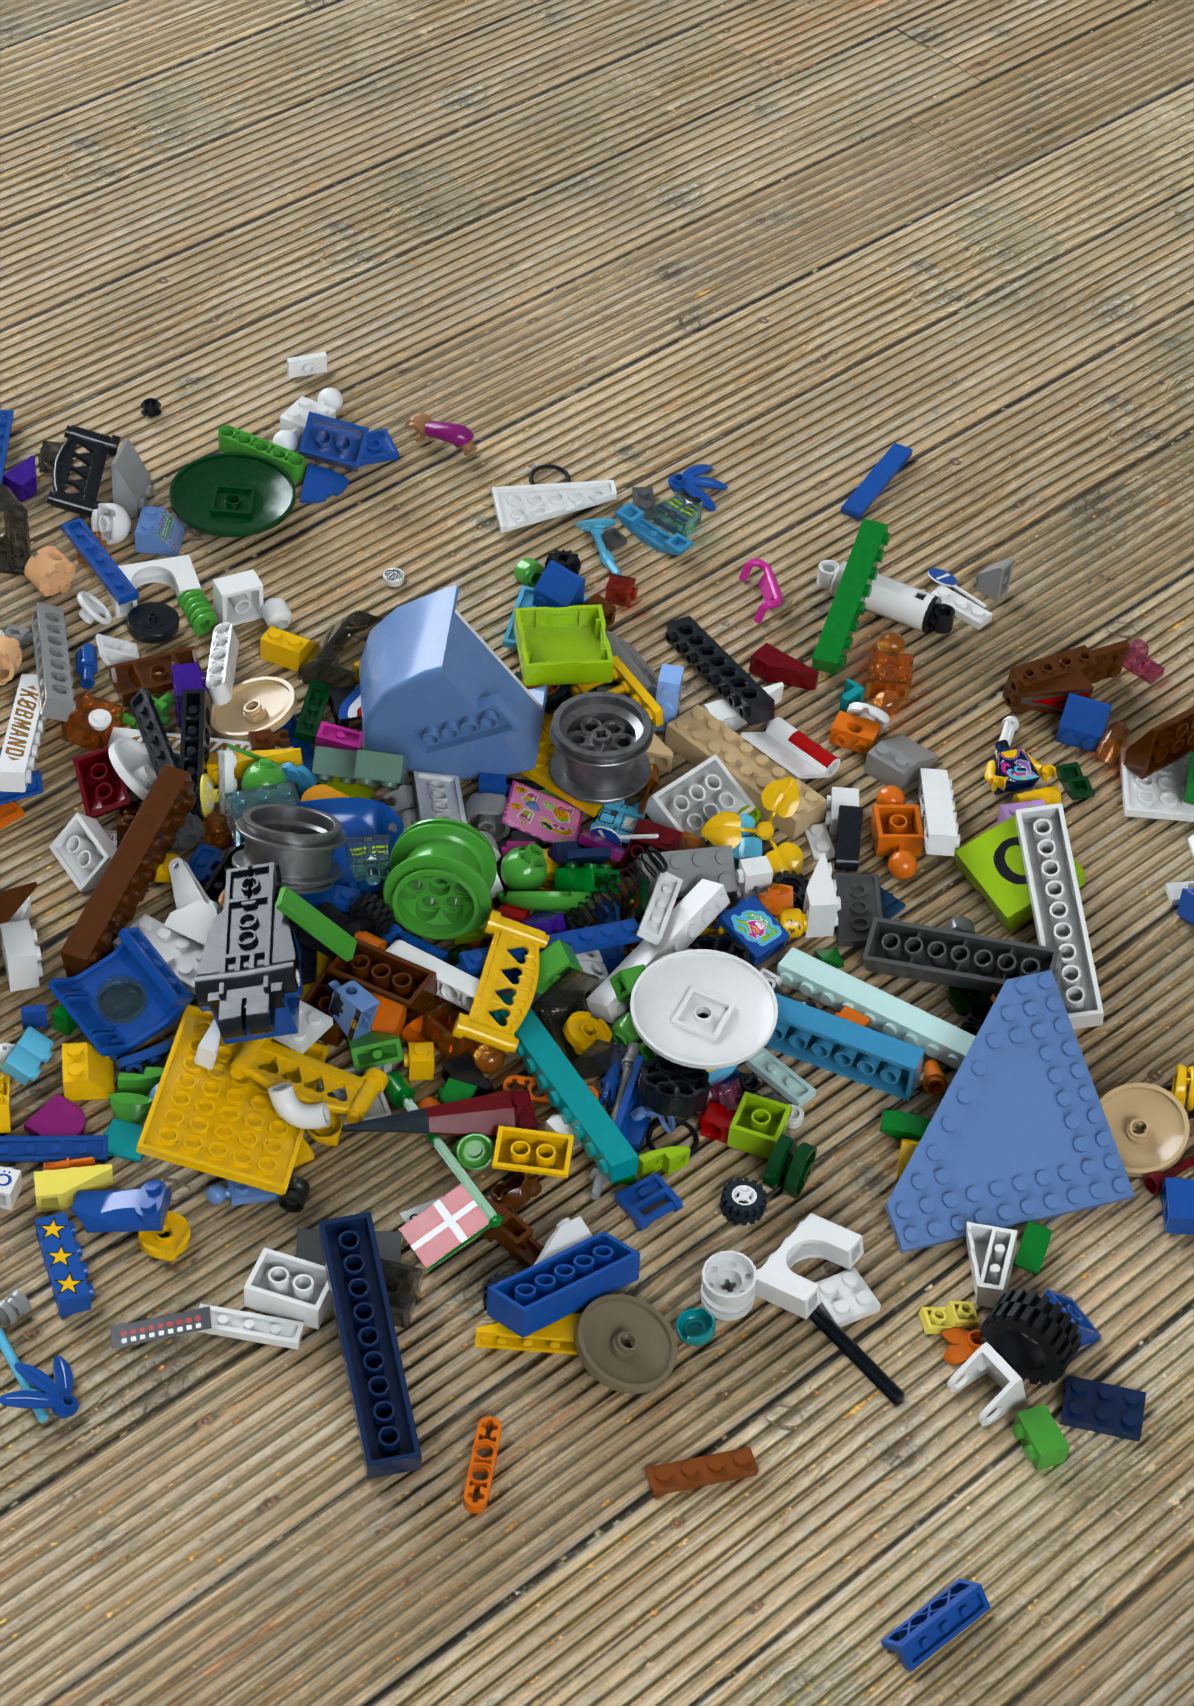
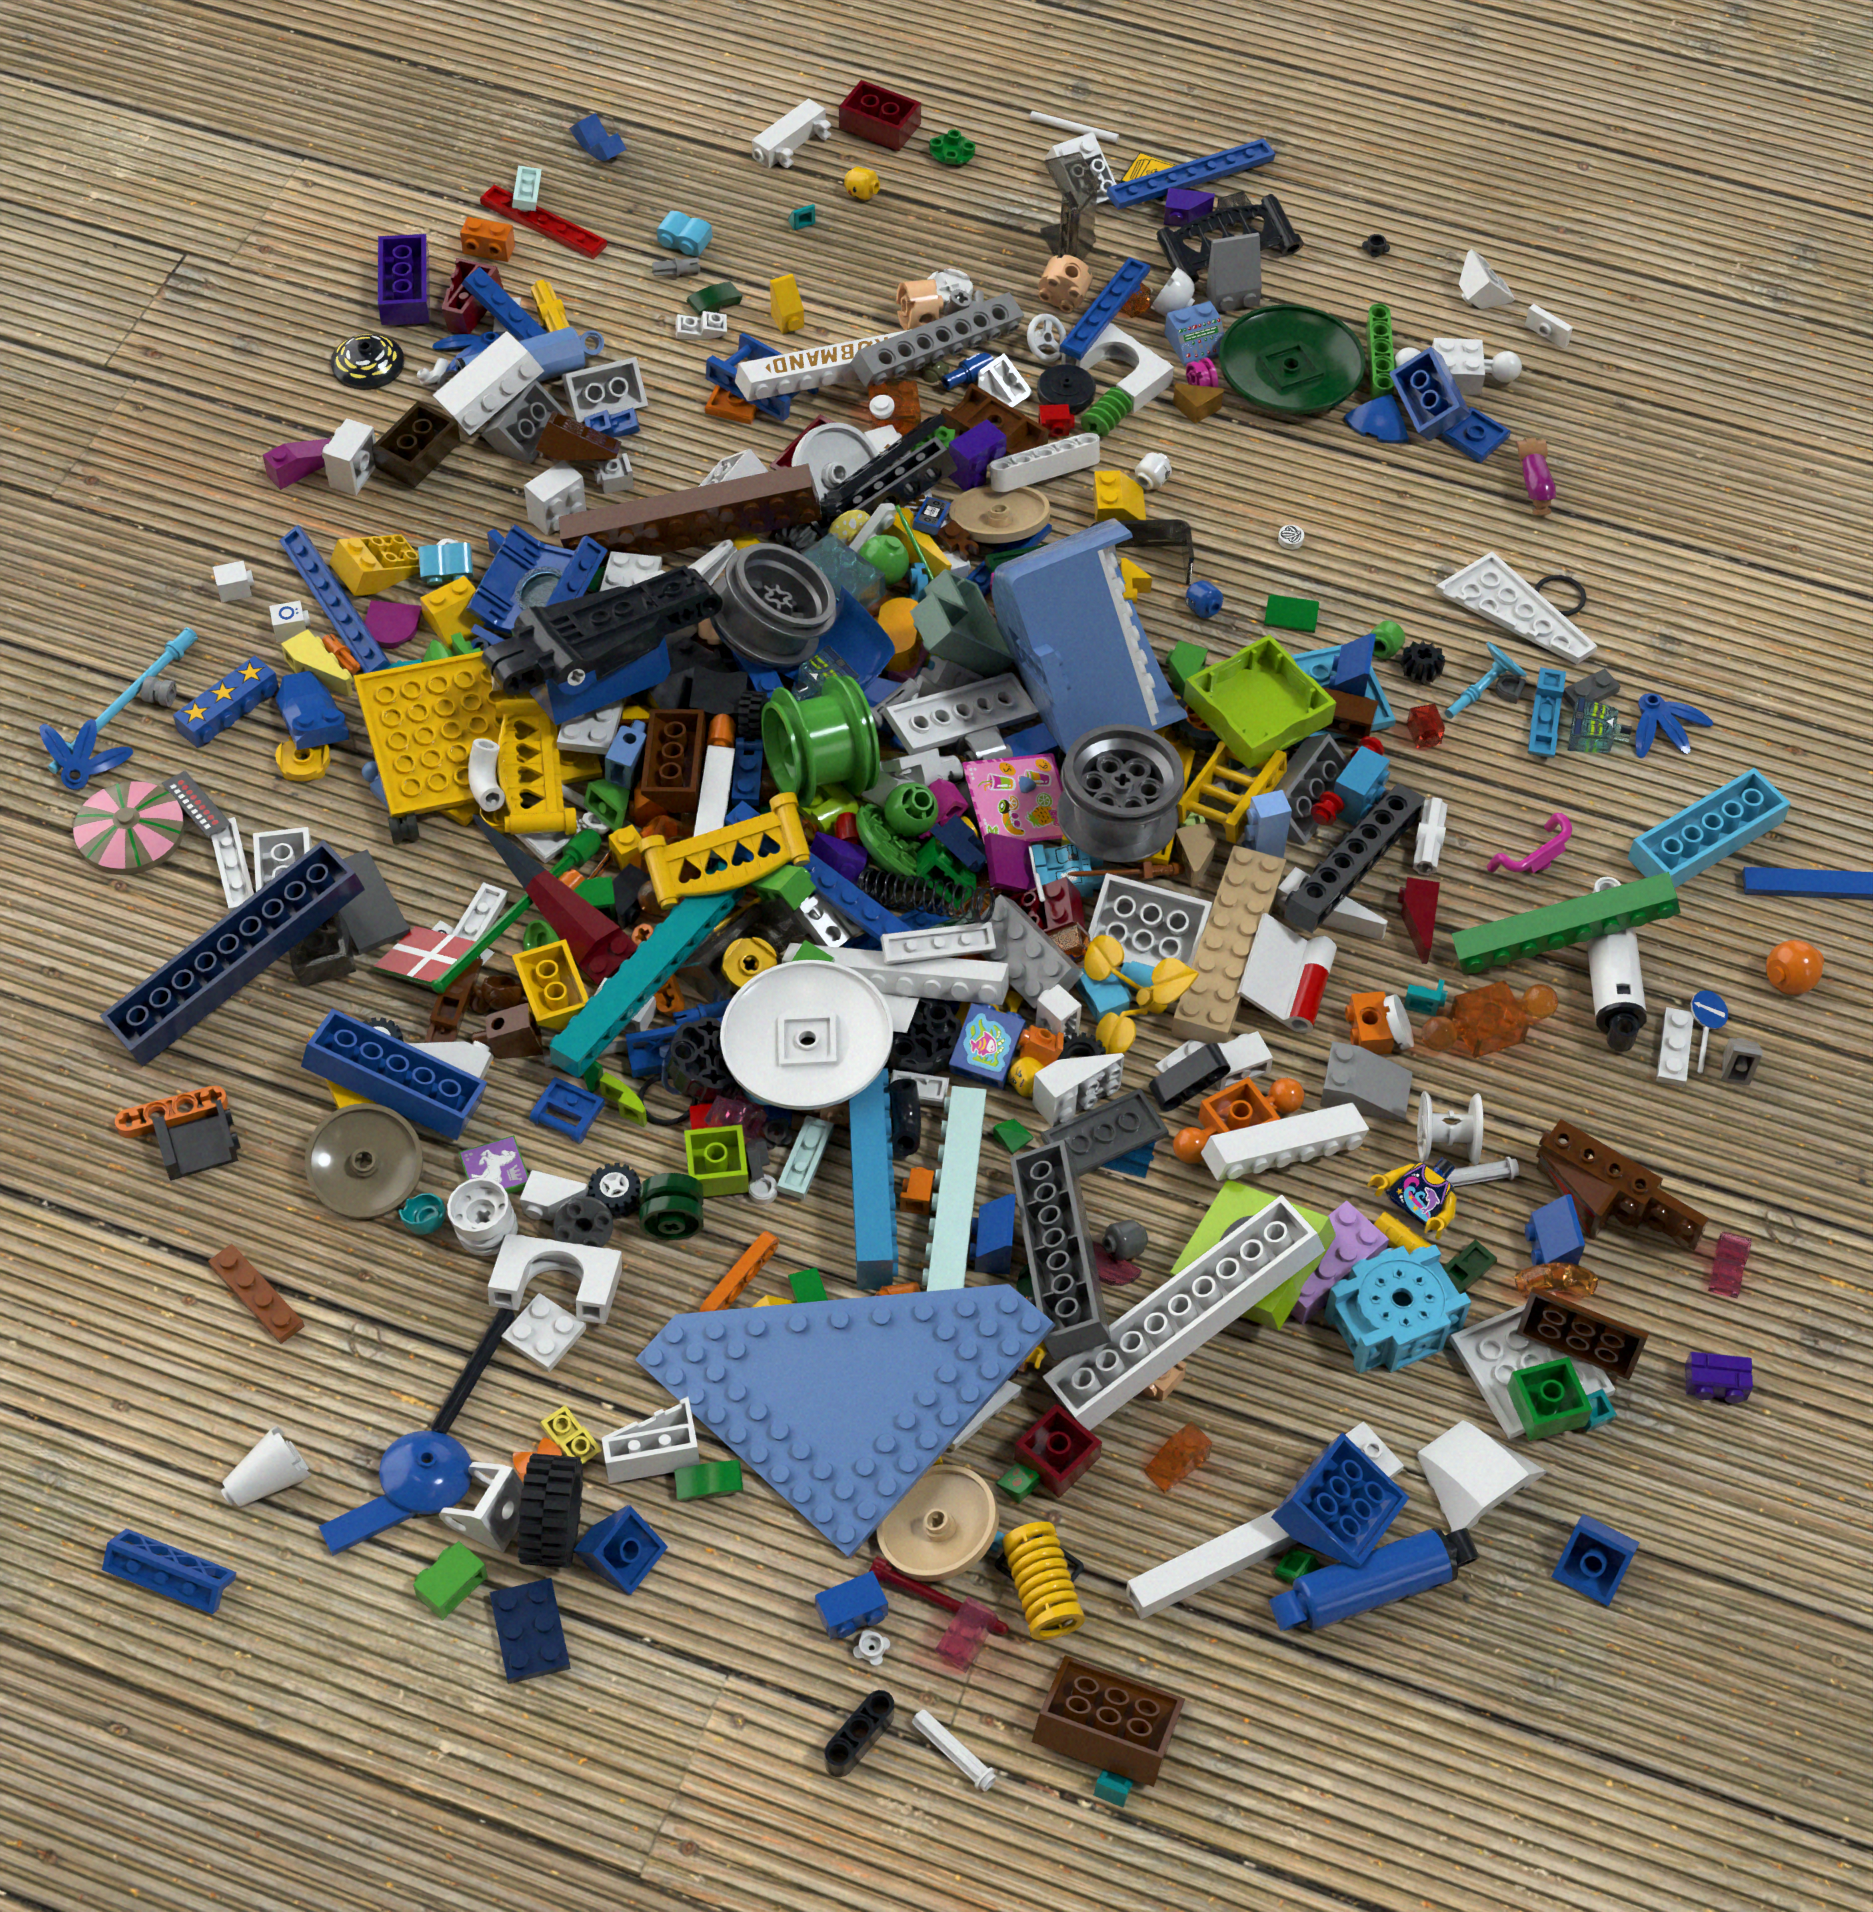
camera: 65 degrees right, 10 degrees up
(149, 1388) = (129, 828): none -> dish
(180, 638) = (1056, 419): none -> red brick
(207, 548) = (1202, 373): none -> dark pink wheel
(224, 562) = (1197, 401): none -> pearl gold slope
(236, 738) = (931, 515): none -> tile
(238, 598) = (1141, 428): white brick -> none
(240, 374) = (1481, 283): none -> white slope
(316, 923) = (667, 664): bright green tile -> none
(418, 1179) = (481, 912): none -> white plate
(424, 1086) = (603, 865): none -> orange sticker
(471, 605) = (1291, 613): none -> green slope
(527, 1454) = (197, 1143): none -> black panel
(559, 1199) = (512, 1033): none -> reddish brown torso
(653, 637) = (1356, 787): none -> dark azure brick
(675, 1270) = (496, 1161): none -> tile
(720, 633) = (1430, 836): none -> white piece
(724, 1237) = (546, 1194): none -> white slope
(768, 1226) = (583, 1222): none -> dark grey plate
(807, 505) = (1710, 829): none -> medium azure brick
(866, 1158) = (741, 1273): none -> orange beam
(884, 1515) = (265, 1470): none -> white cone
(922, 989) = (994, 1236): none -> blue slope
(934, 1418) = (421, 1485): none -> blue dish
(938, 522) = (1794, 967): none -> orange brick
(956, 1473) = (362, 1524): none -> blue tile
(977, 724) = (1465, 1130): none -> white piece
(1100, 820) = (1394, 1291): none -> medium azure piece
(1114, 1041) = (1058, 1450): none -> dark red brick
(1120, 1075) = (1019, 1482): none -> green slope
(1147, 984) = (1179, 1457): none -> clear orange slope

